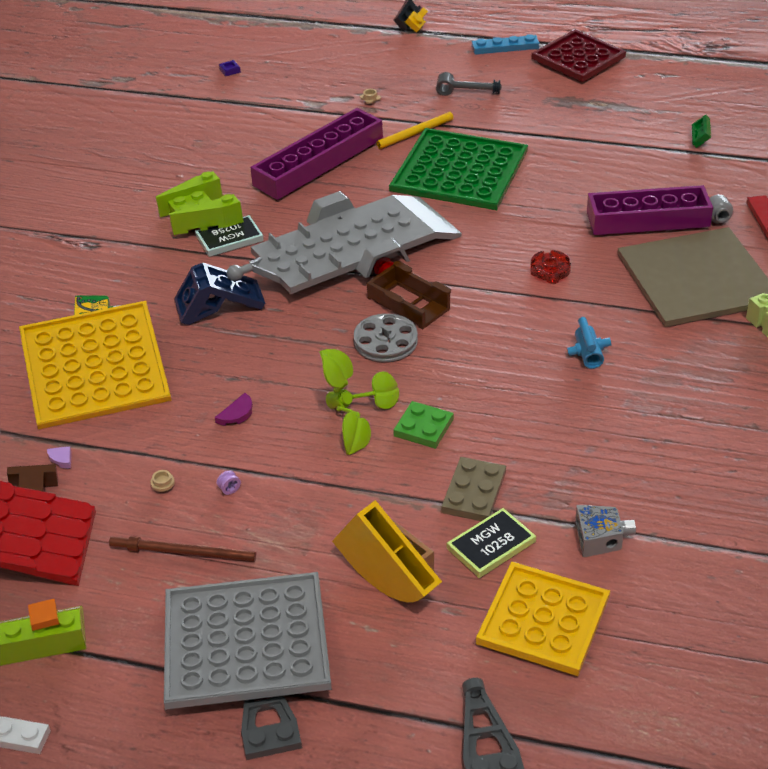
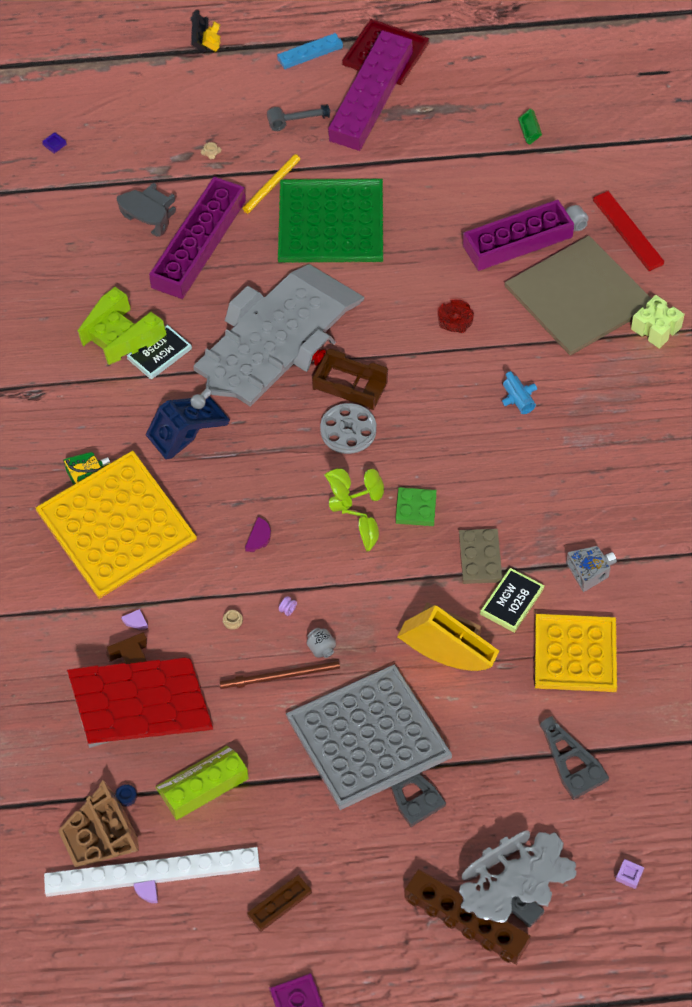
camera: 20 degrees left, 15 degrees up
(43, 614) = (216, 766): orange tile -> none
(244, 526) = (321, 643): none -> light grey head
(283, 119) = (148, 207): none -> dark grey piece
(546, 75) = (370, 90): none -> magenta brick

